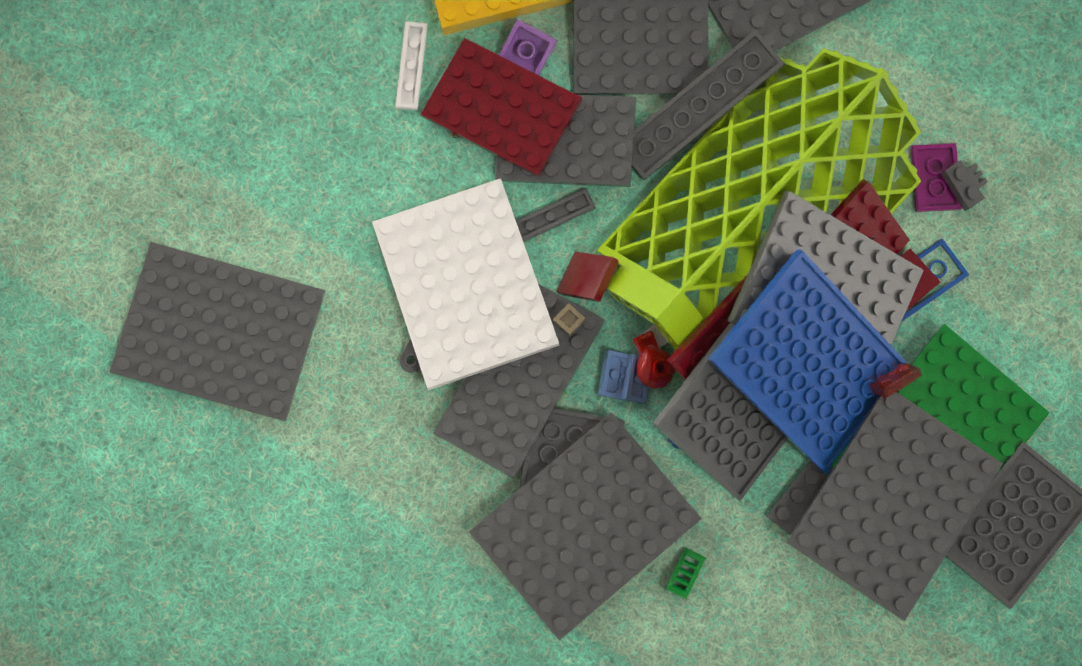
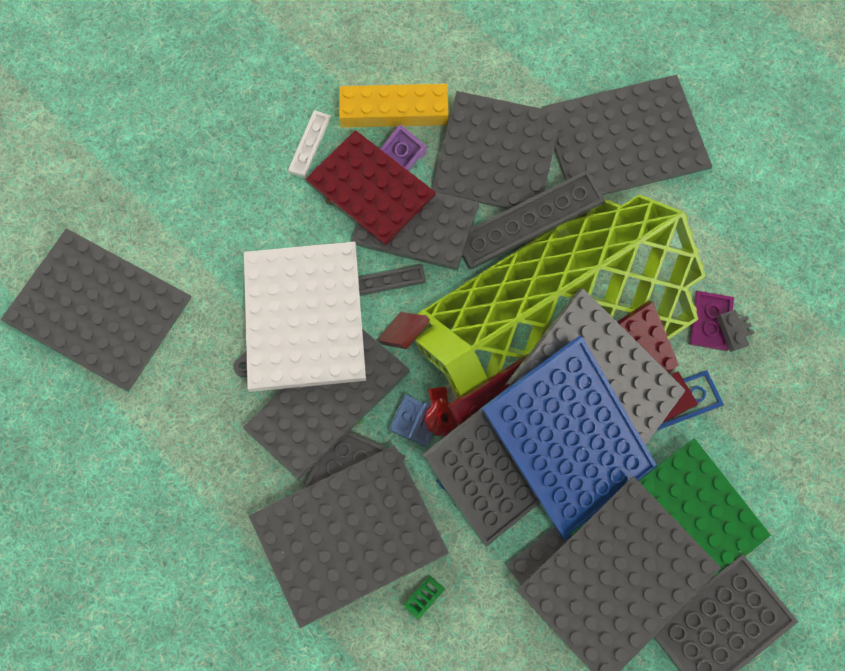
camera: 15 degrees right, 10 degrees down
(569, 319) = (379, 361): dark tan plate -> none
(895, 380) = (637, 474): clear red plate -> none

